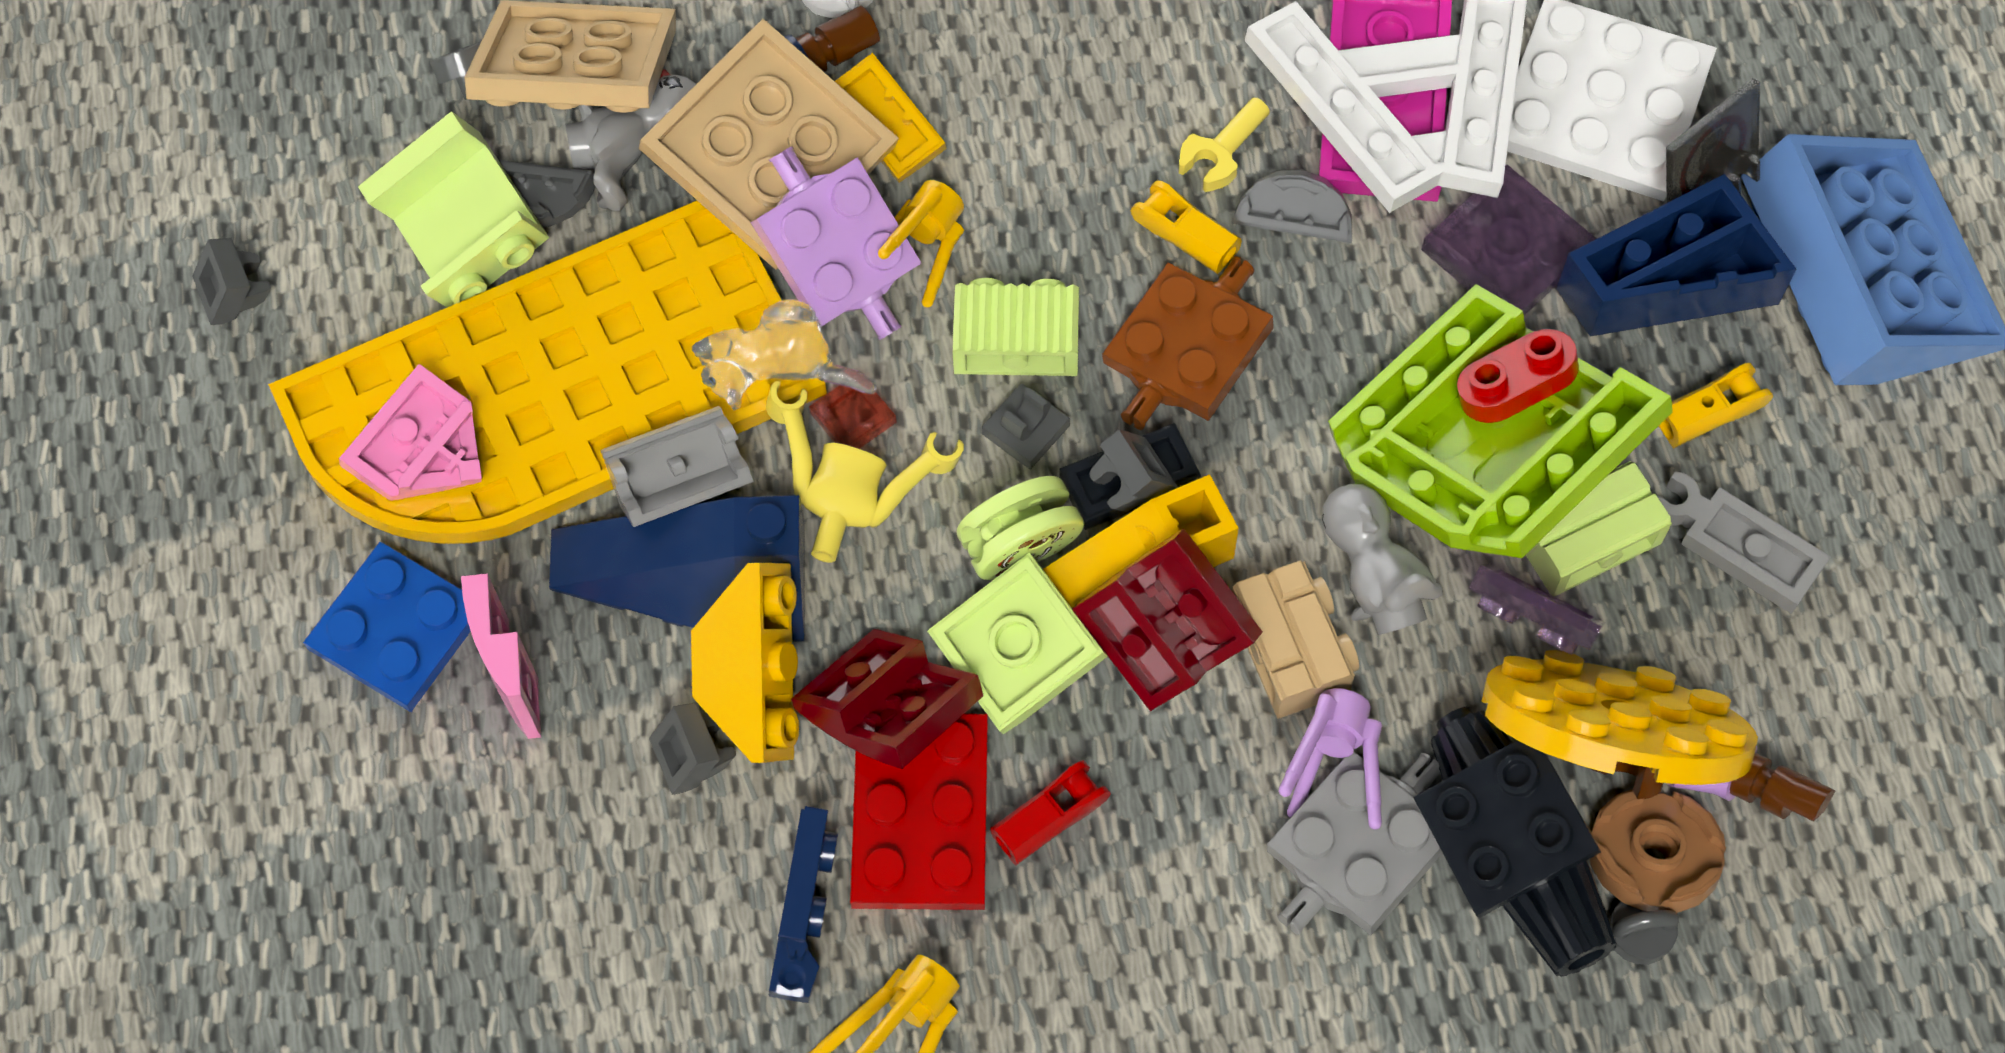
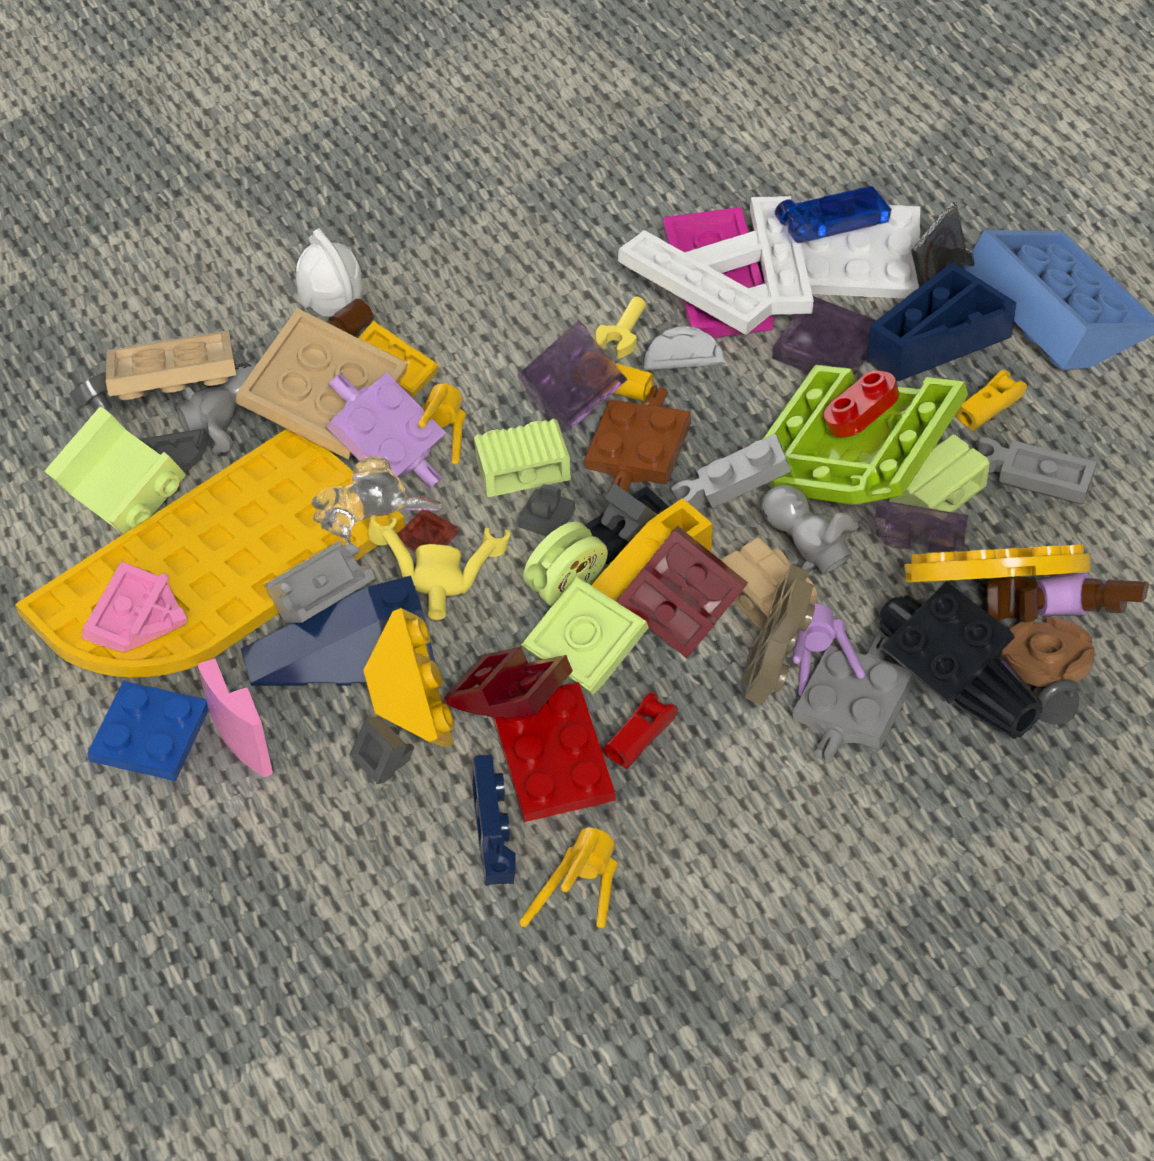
camera: 15 degrees left, 15 degrees down
(1124, 216) = (572, 377): none -> clear purple plate
(1274, 739) = (787, 615): none -> dark tan plate
(1302, 442) = (735, 474): none -> light grey plate
(1579, 39) = (833, 214): none -> clear blue plate

